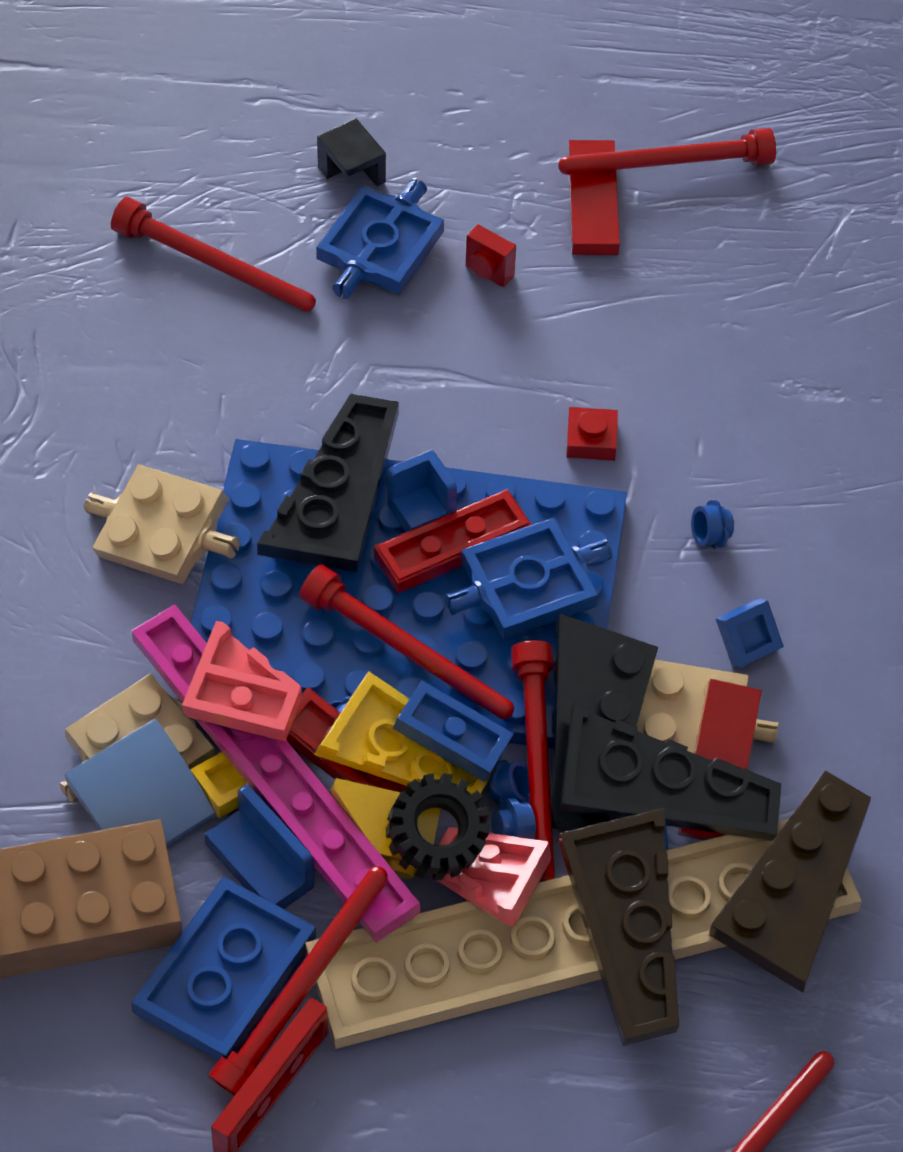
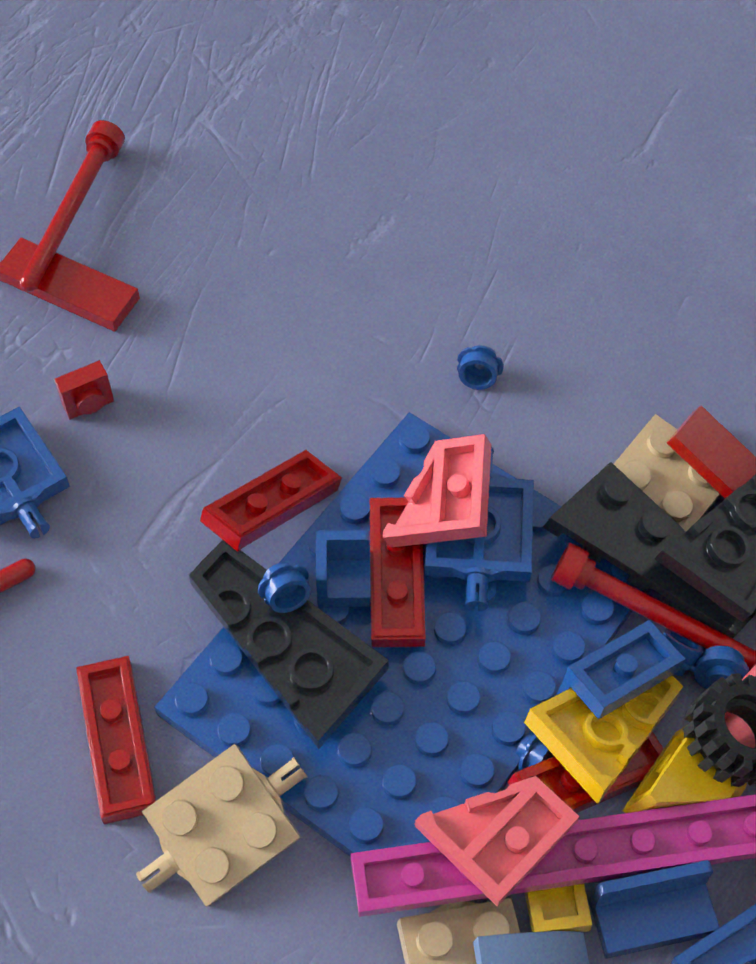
camera: 60 degrees left, 5 degrees up
(200, 428) = (116, 739): none -> red tile
(326, 591) = (402, 705): red piece -> none
(371, 455) = (285, 587): none -> blue plate
(465, 425) = (270, 500): none -> red tile
(533, 529) = (448, 495): none -> coral wing
(592, 433) = (324, 409): red plate -> none
(749, 632) = (608, 393): blue plate -> none

